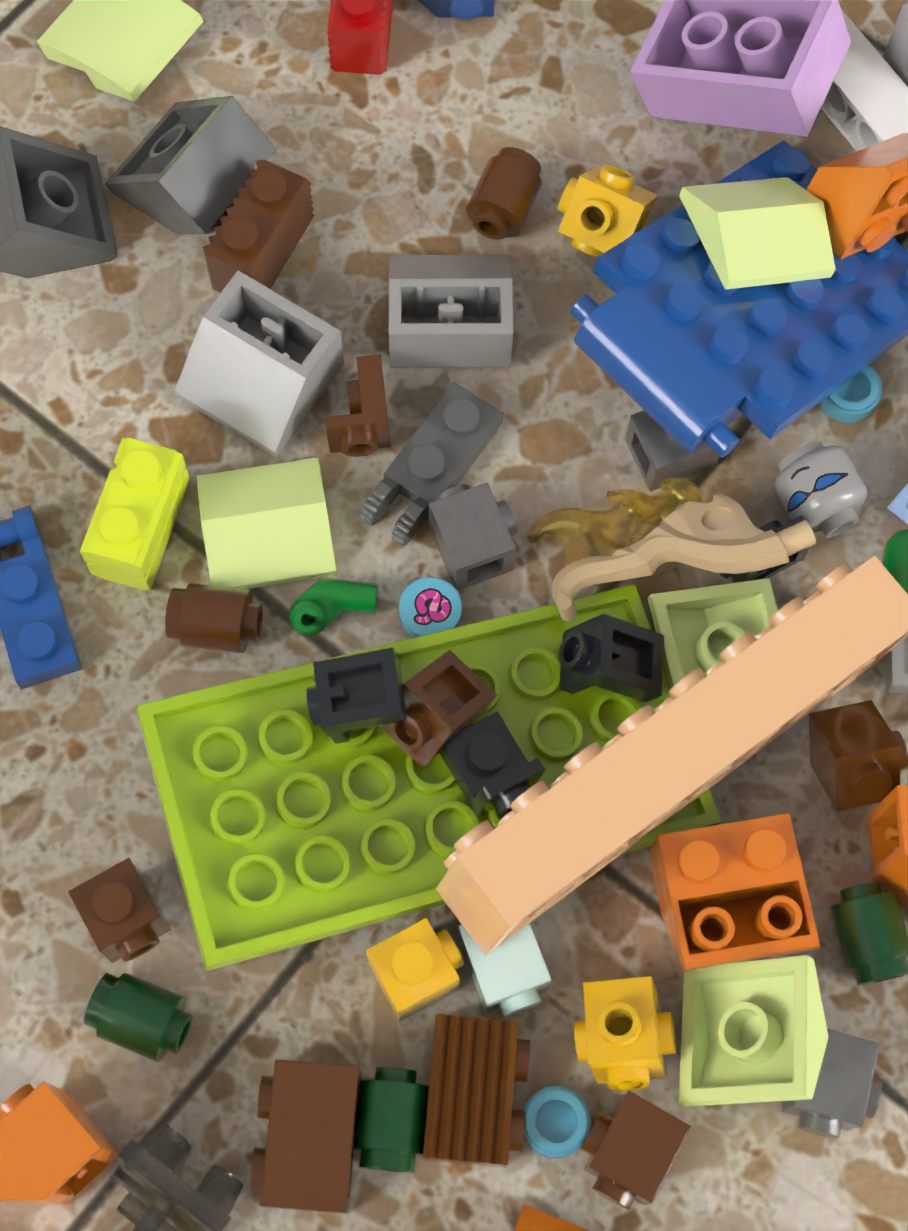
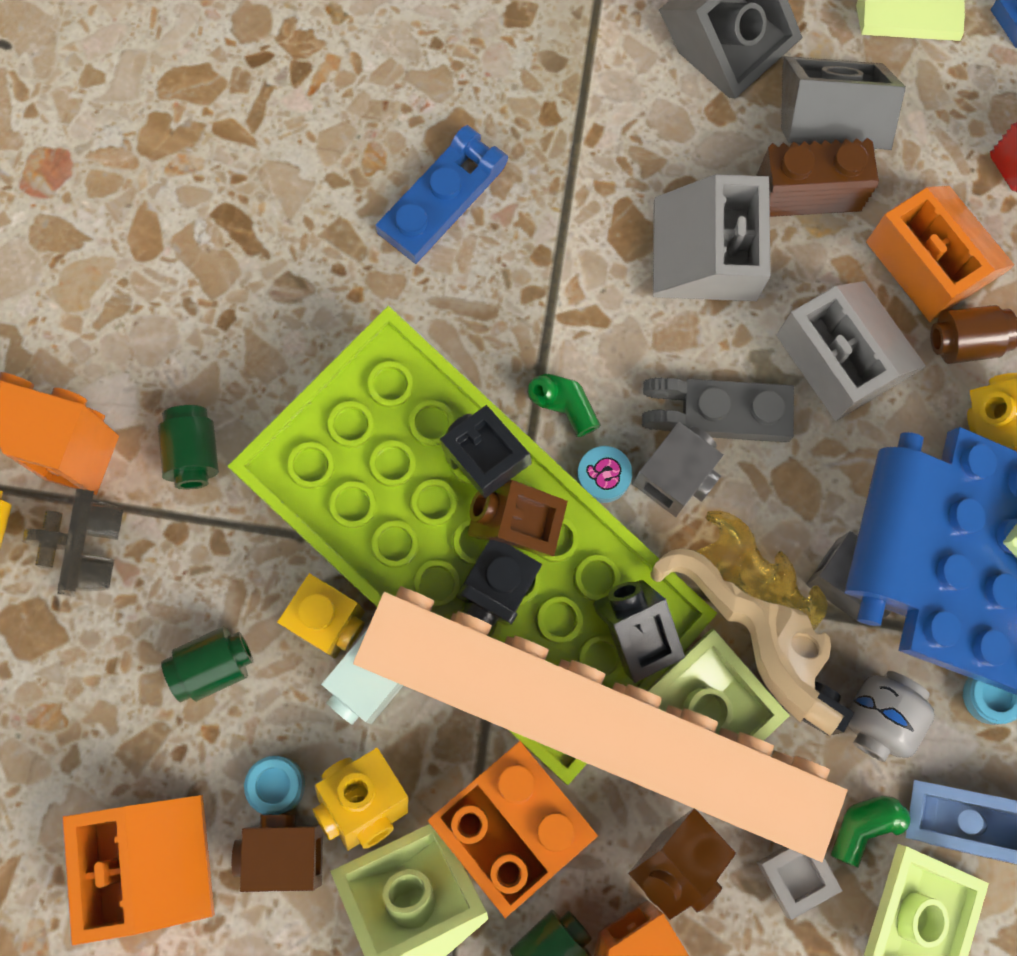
camera: 60 degrees right, 5 degrees up
(120, 912) = (250, 390): reddish brown brick -> none
(135, 514) = (544, 226): neon yellow brick -> none
(213, 617) = (501, 325): reddish brown brick -> none
(266, 525) = (596, 320): yellowish green slope -> none
(308, 1136) = (163, 613): reddish brown brick -> none
(367, 423) = (729, 339): reddish brown bracket -> none
(405, 174) = (937, 250): none -> orange slope
(473, 1091) = (257, 712): reddish brown brick -> none

